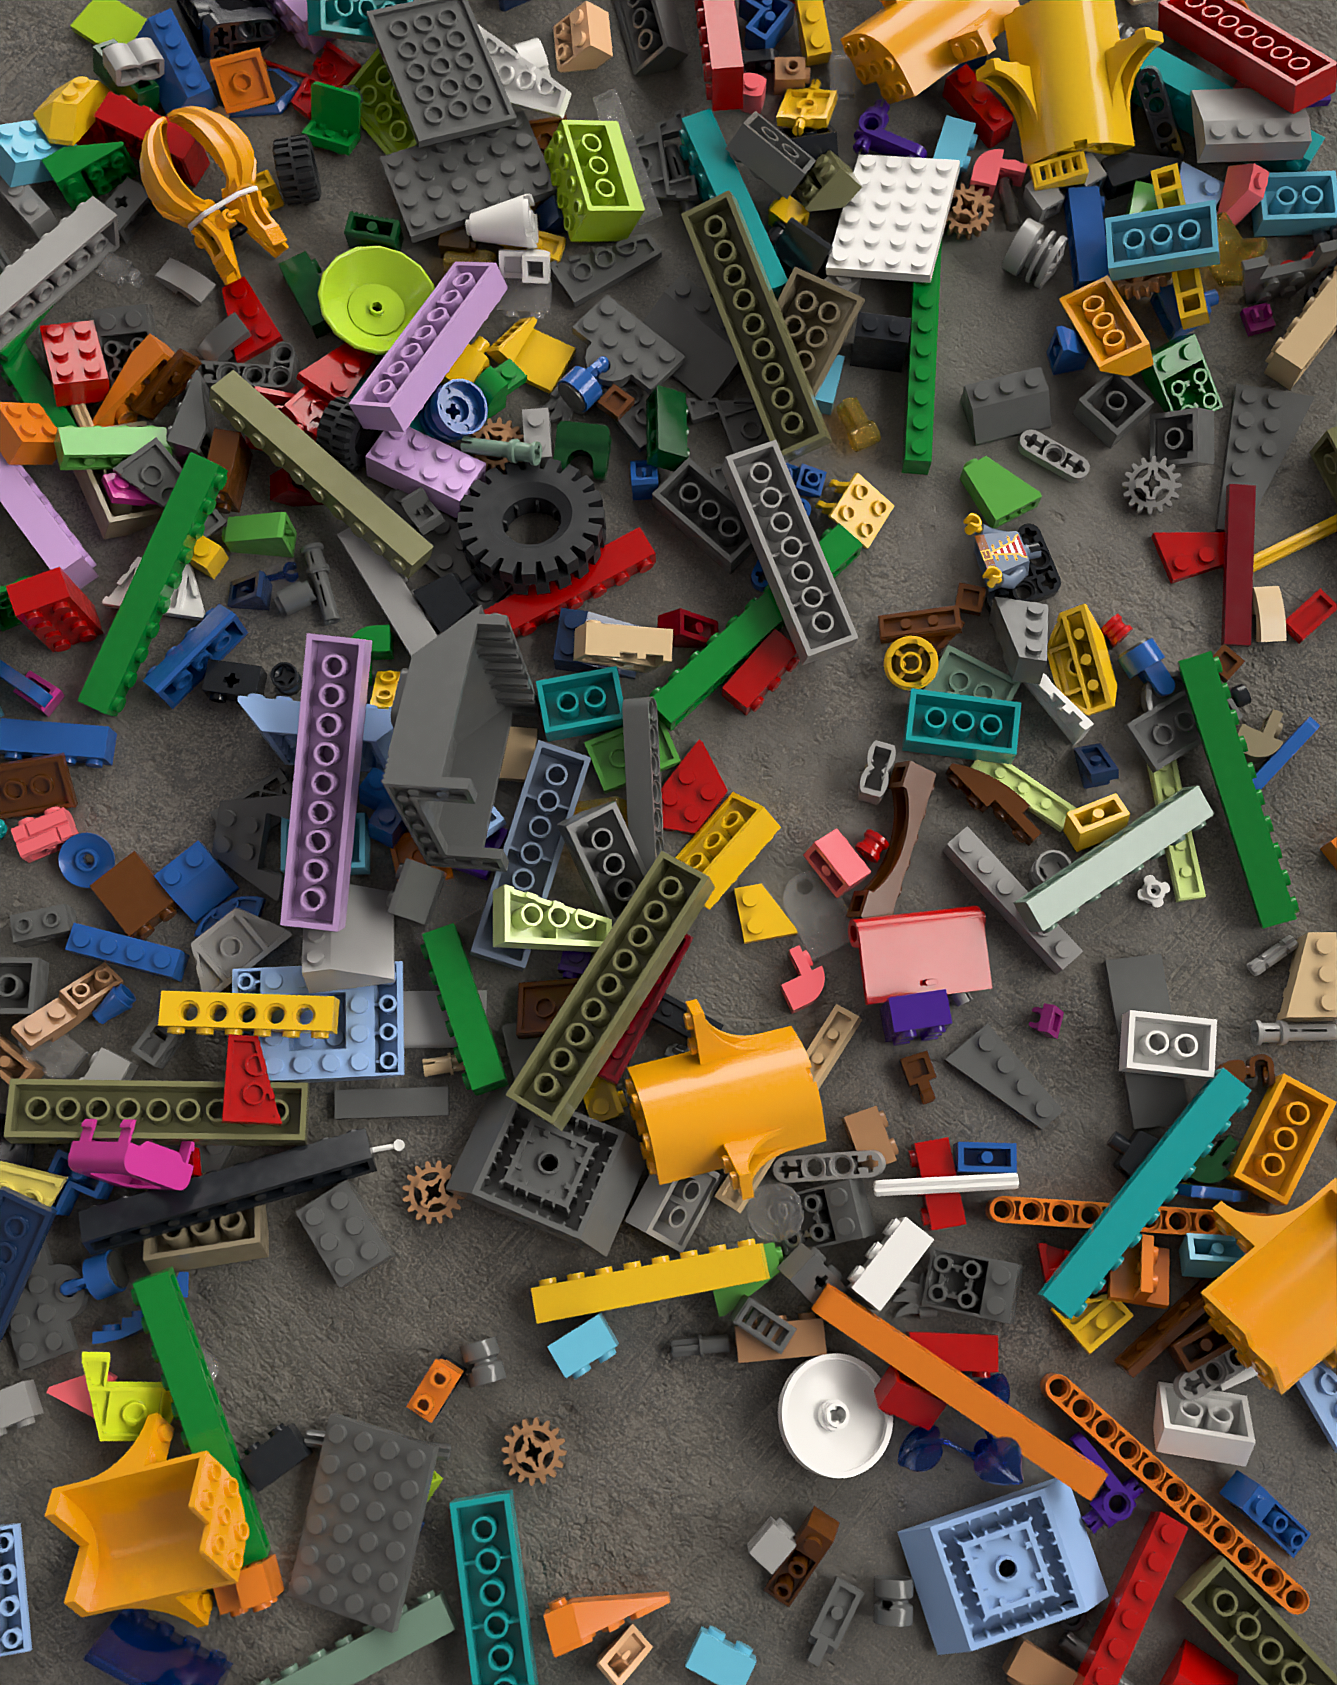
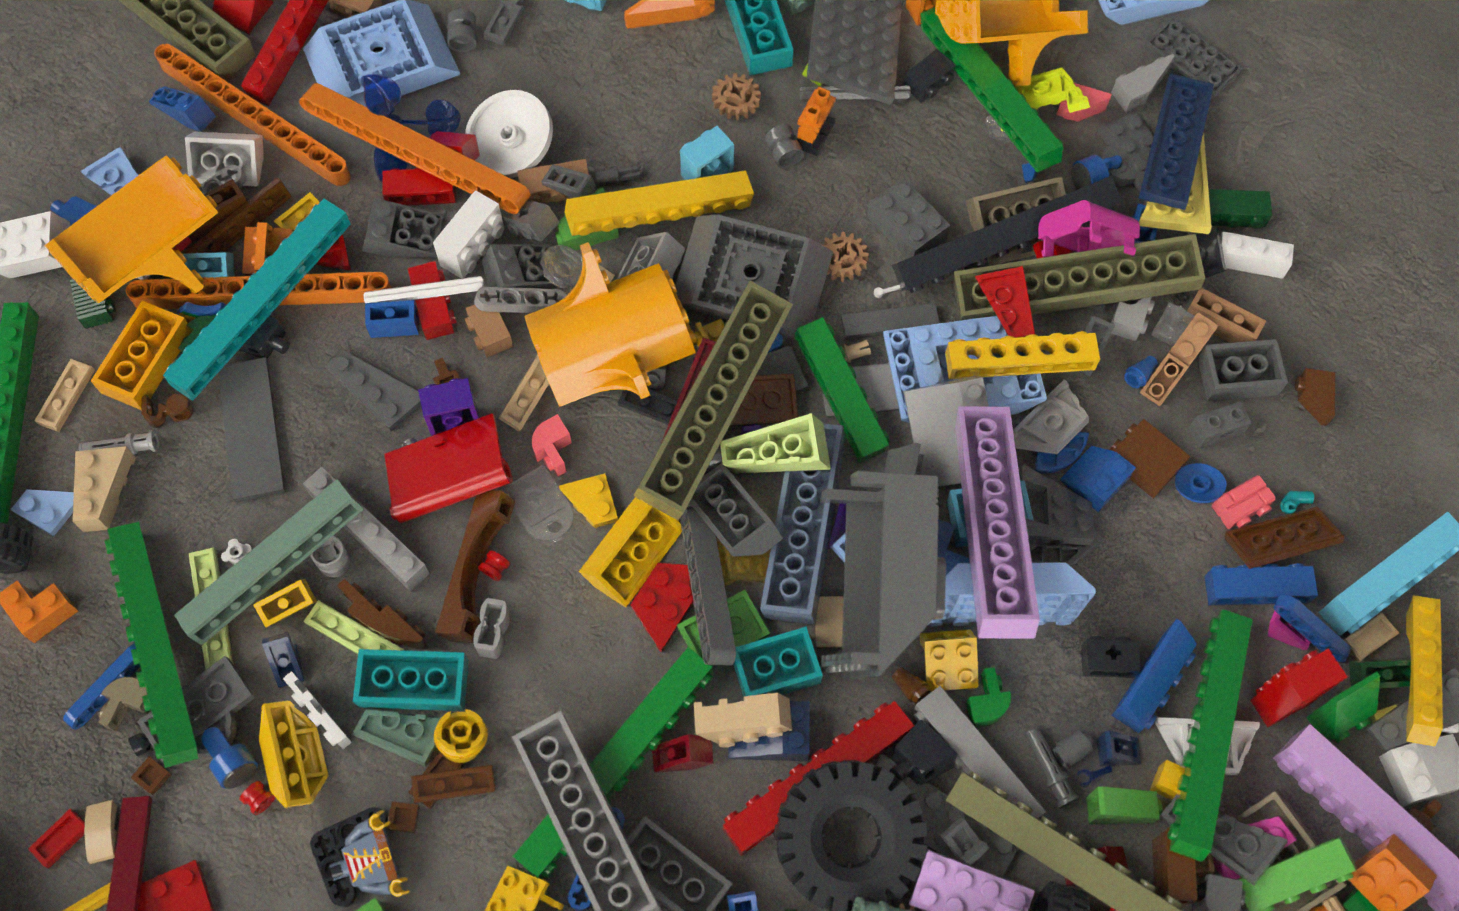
camera: 170 degrees right, 10 degrees down
(113, 1332) = (1073, 139): blue slope -> none
(127, 952) = (1129, 407): blue brick -> none
(283, 673) = (1065, 662): black wheel -> none
(761, 673) = (607, 715): red brick -> none
(772, 1543) = (552, 50): light grey brick -> none
(812, 1544) = (527, 53): reddish brown slope -> none
(837, 863) = (524, 544): coral brick -> none
(1023, 635) = (349, 773): dark grey wedge -> none
(1049, 1021) = (334, 433): magenta tile -> none
(1128, 1491) = (291, 108): dark purple piece -> none
(1168, 1045) = (232, 413): white brick -> none
(1272, 955) = (132, 508): light grey axle -> none

